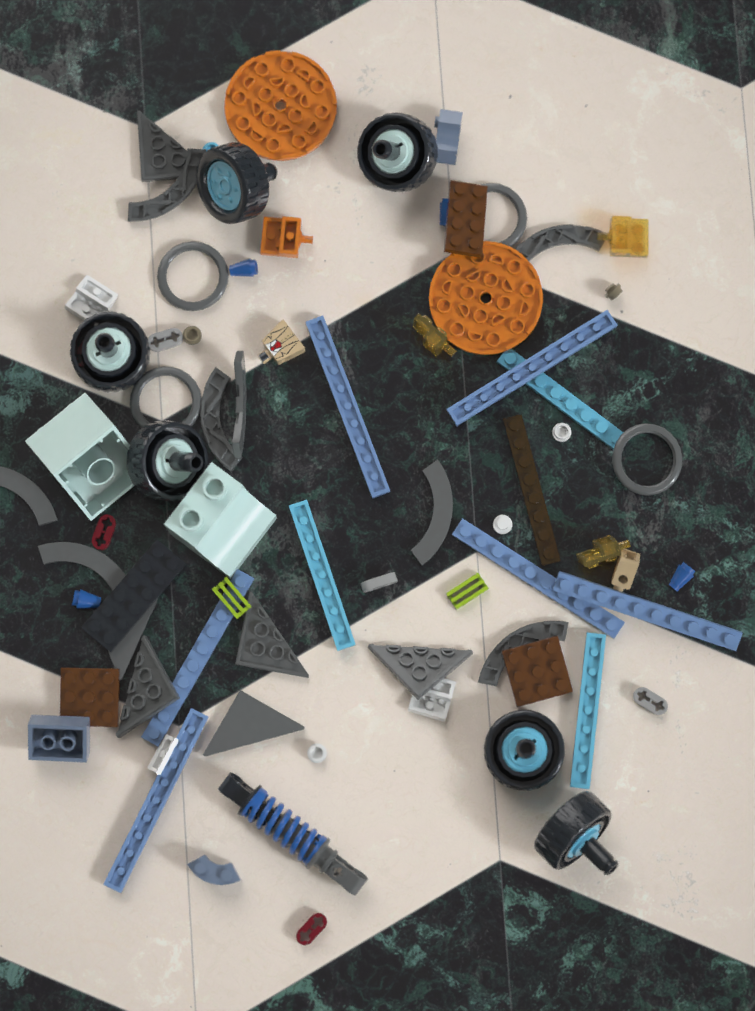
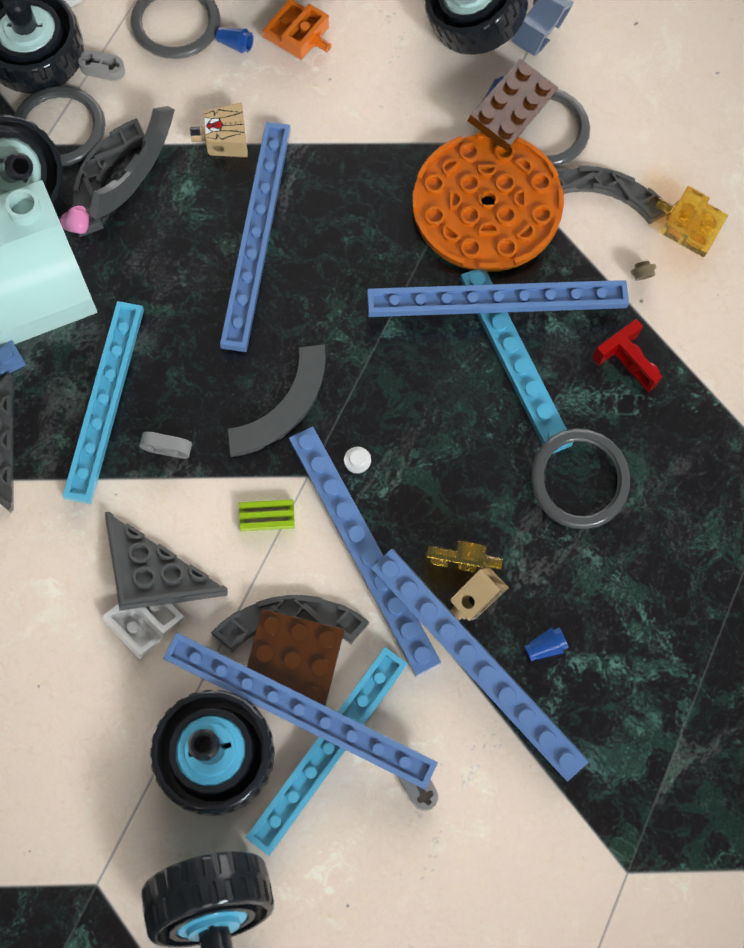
camera: 25 degrees right, 10 degrees down
(192, 335) = (133, 74): dark tan plate -> none
(228, 464) = (75, 220): none -> bright pink piece
(433, 338) = (400, 204): clear yellow plate -> none
(531, 490) = (416, 443): dark brown plate -> none
(560, 698) = (301, 710): none -> medium blue plate
(561, 432) = (492, 393): white plate -> none
(635, 357) = (629, 355): none -> red bracket

